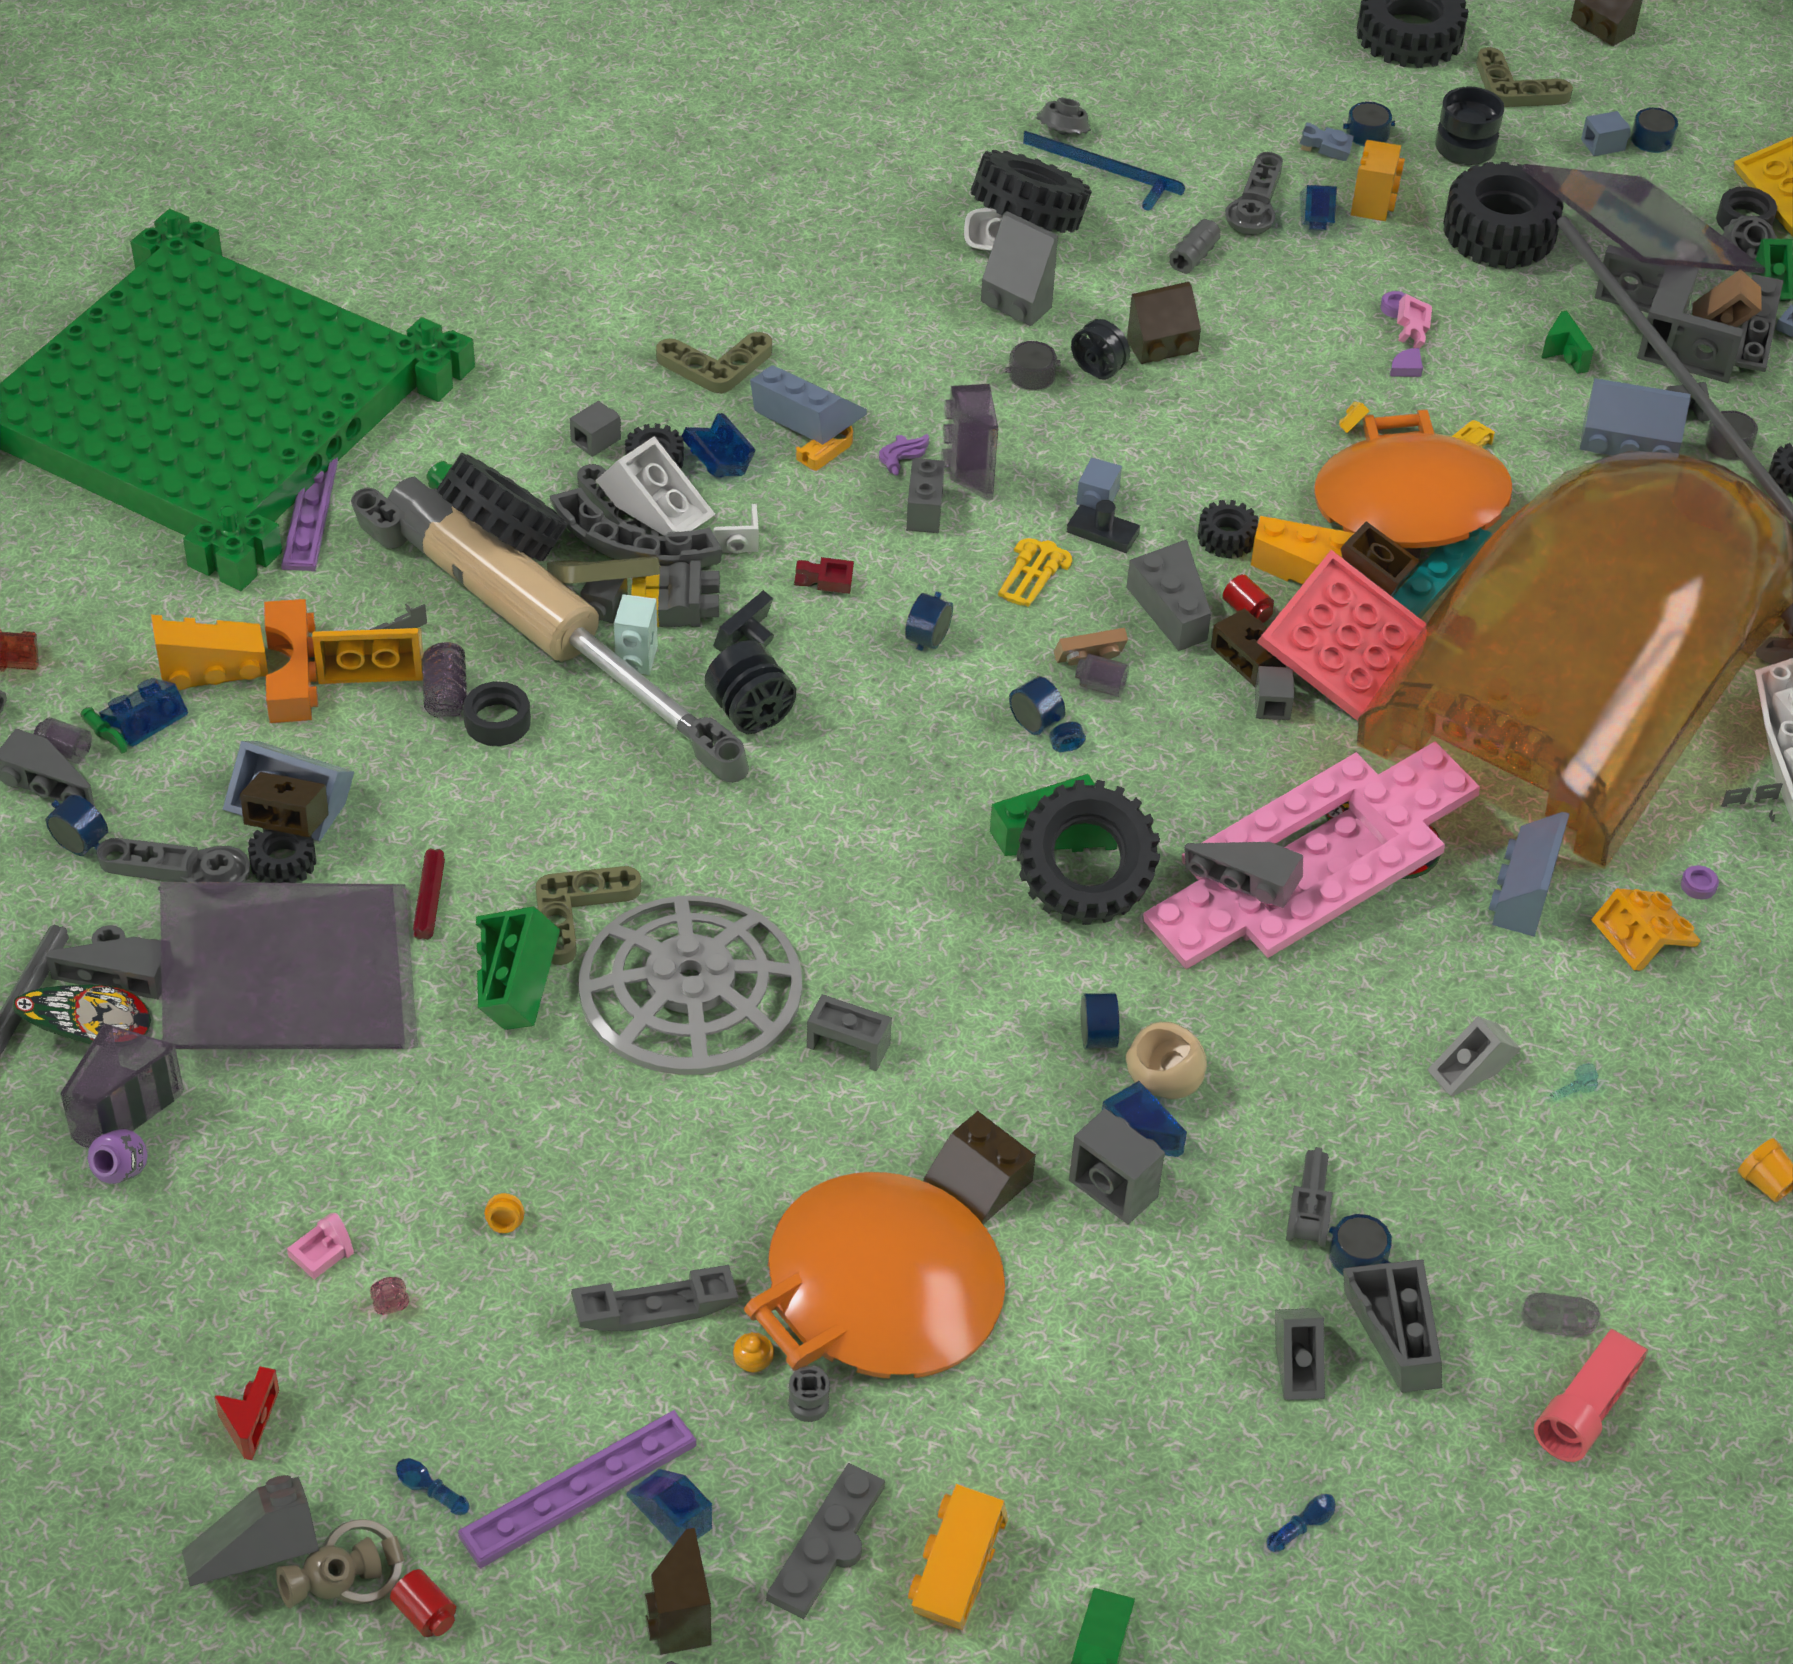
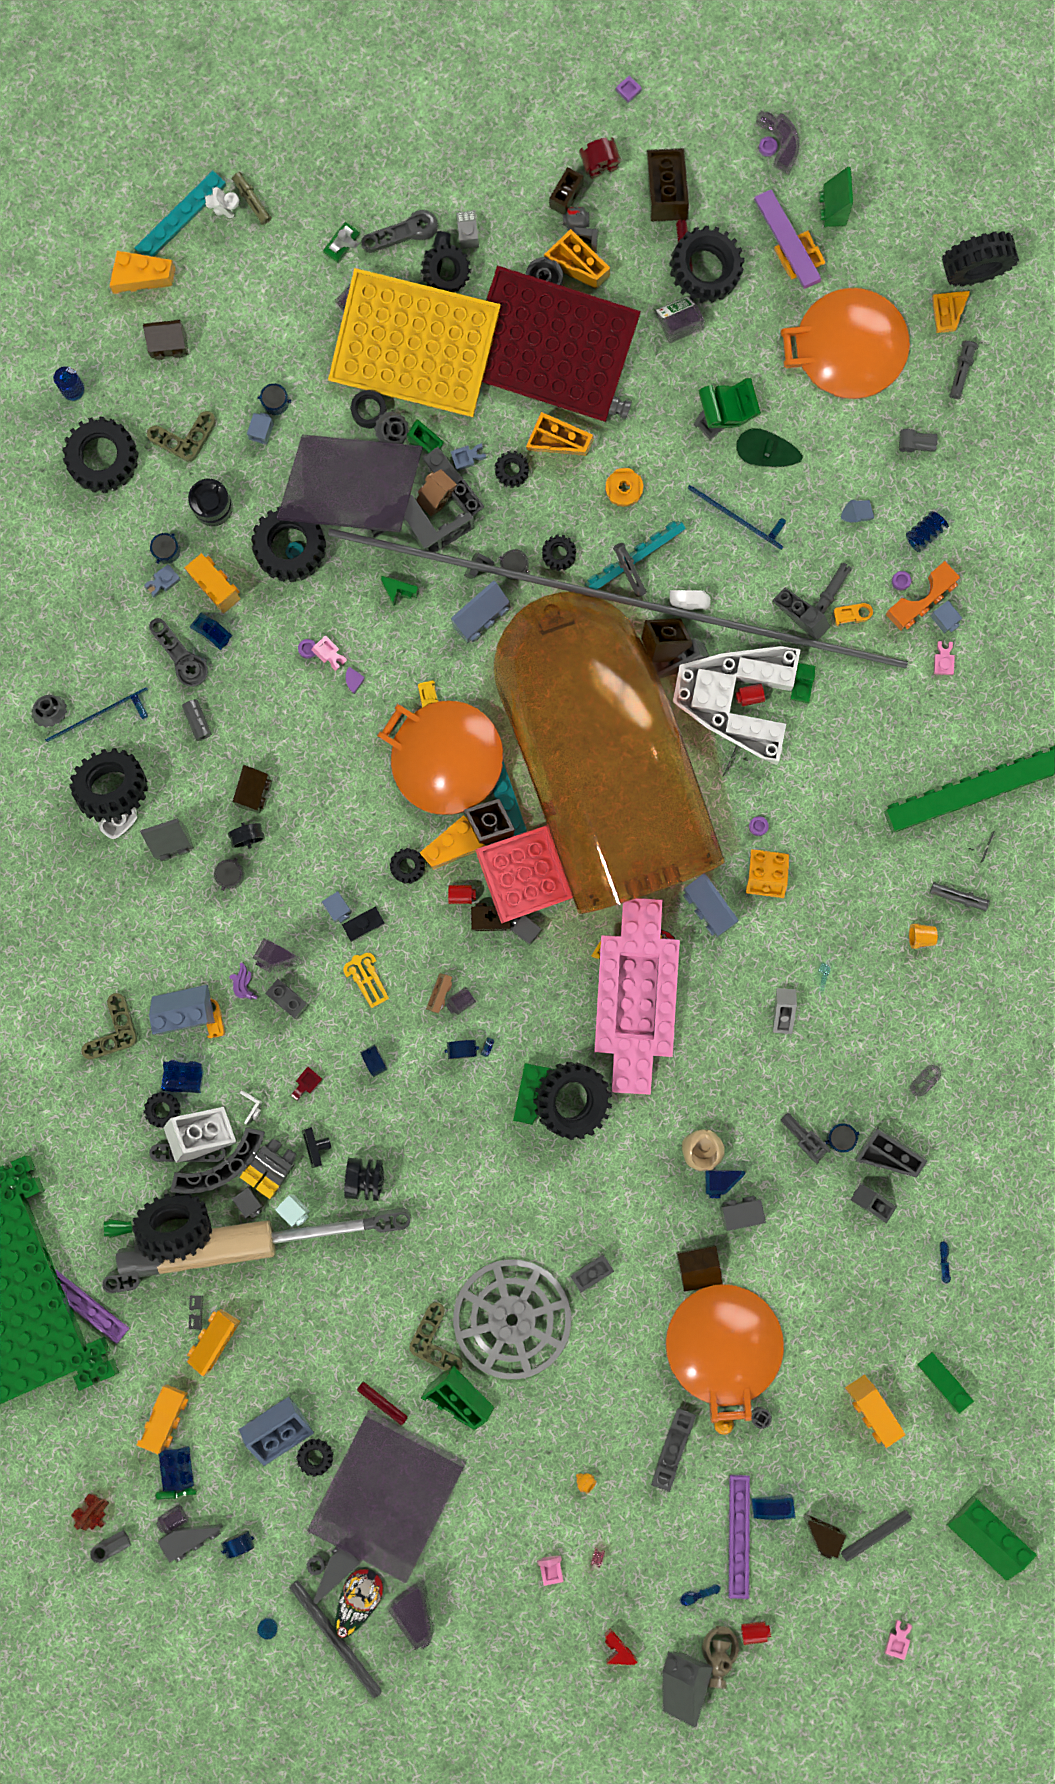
camera: 45 degrees left, 35 degrees up
(117, 1156) = (449, 1632): medium lavender head -> none
(173, 861) = (293, 1503): dark grey beam -> none
(284, 804) = (306, 1445): dark brown brick -> none
(289, 688) = (212, 1392): orange arch -> none
(444, 679) = (255, 1316): piece -> none
(501, 732) = (306, 1303): black tyre -> none
(579, 571) = (239, 1211): olive beam -> none
(595, 428) = (125, 1128): dark grey brick -> none
(827, 1541) = (828, 1453): dark grey hinge -> none
(1100, 1020) = (660, 1160): clear blue piece -> none
(1172, 593) = (431, 928): dark grey wedge -> none
(1250, 867) = (638, 1034): dark grey slope -> none
(1354, 414) = (375, 740): yellow tile -> none
(1575, 1417) = (971, 1102): coral beam -> none

